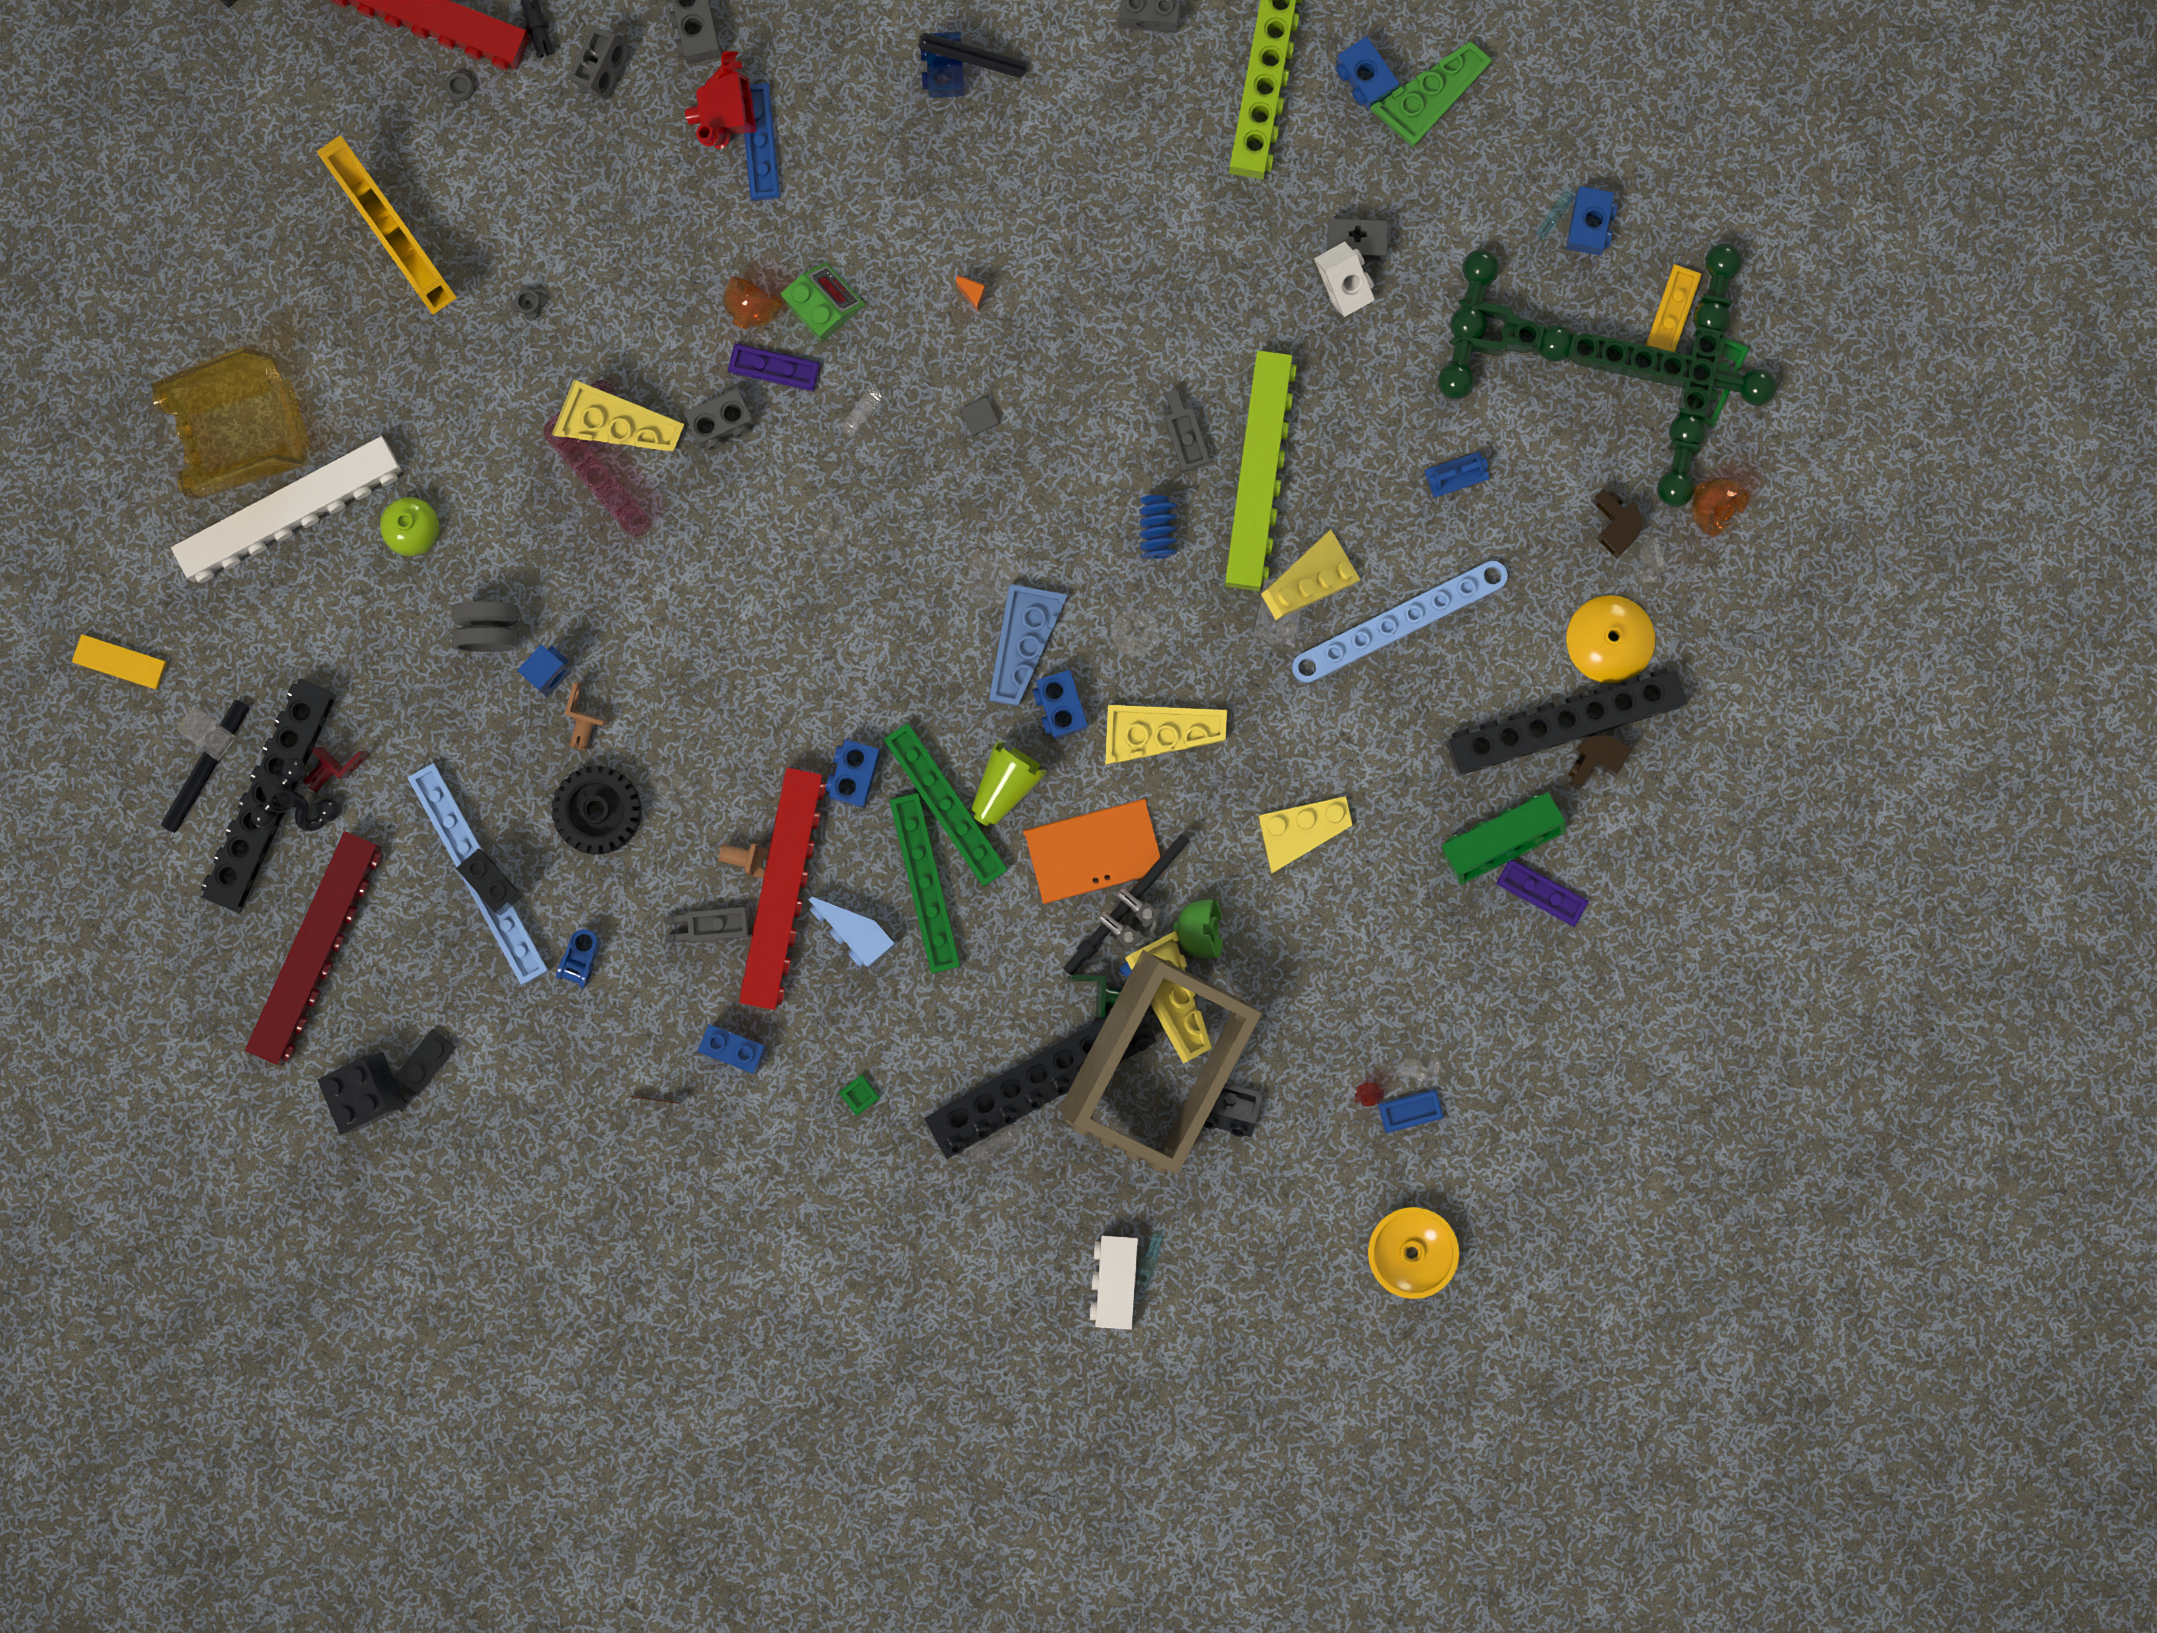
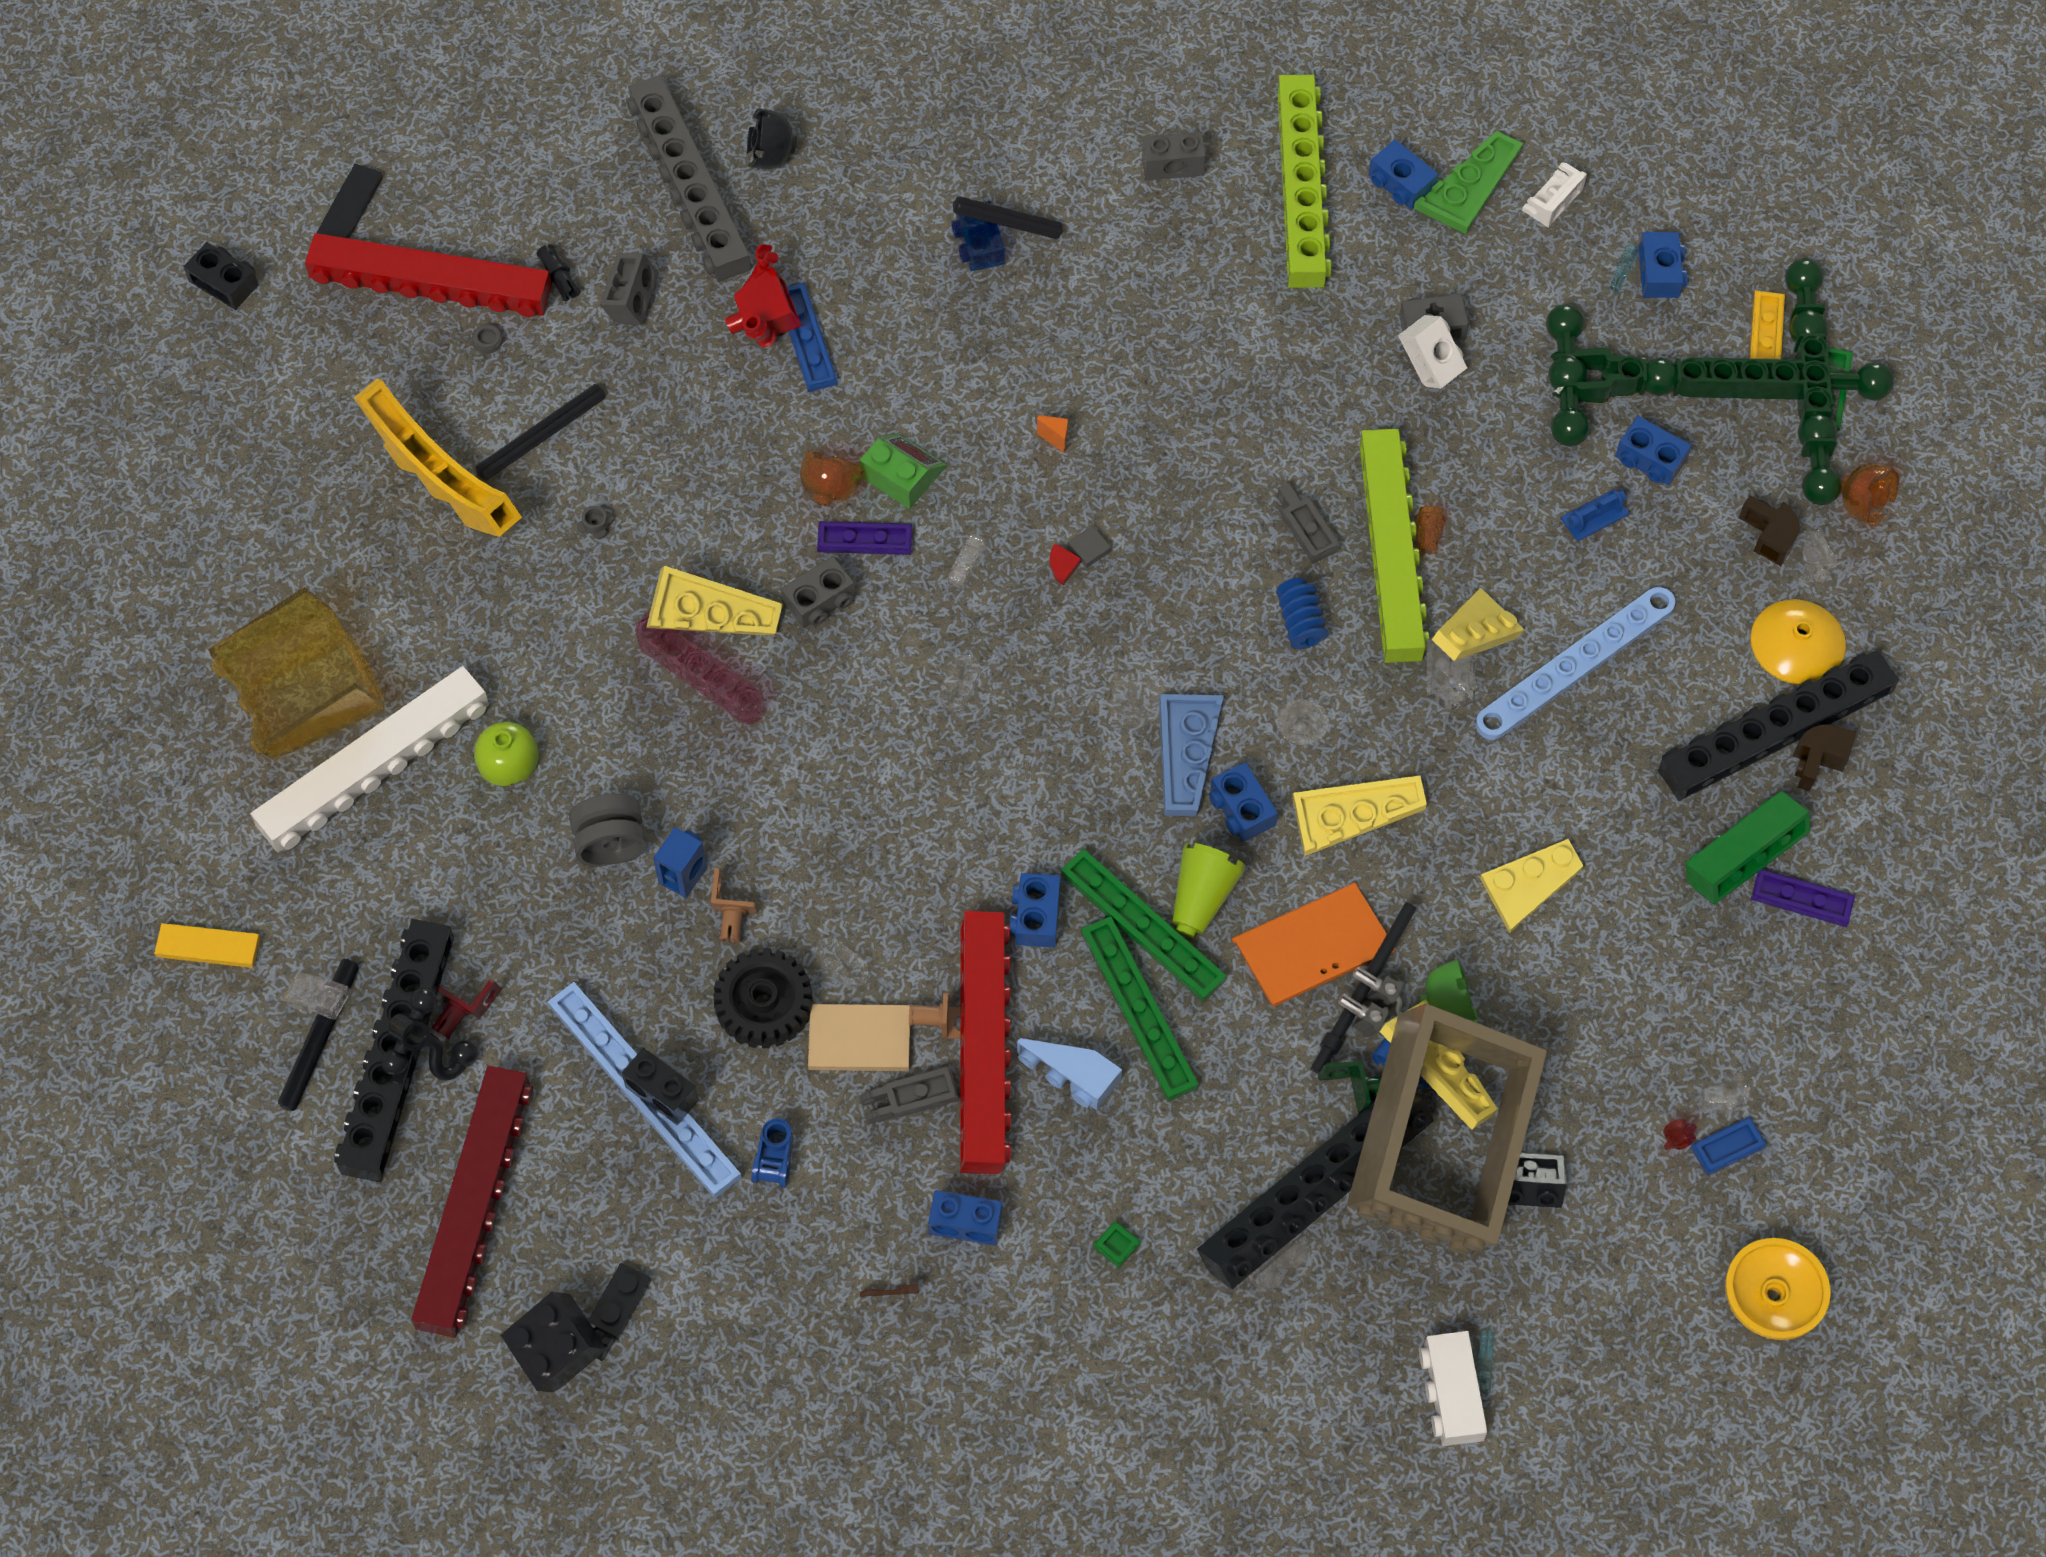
camera: 15 degrees left, 20 degrees down
(493, 197) = (540, 432): none -> black axle
(674, 861) = (859, 1037): none -> tan tile
(951, 429) = (1063, 563): none -> red tile
(1298, 460) = (1429, 526): none -> clear orange cone
(1509, 122) = (1555, 194): none -> white hinge
(1533, 415) = (1656, 446): none -> blue brick

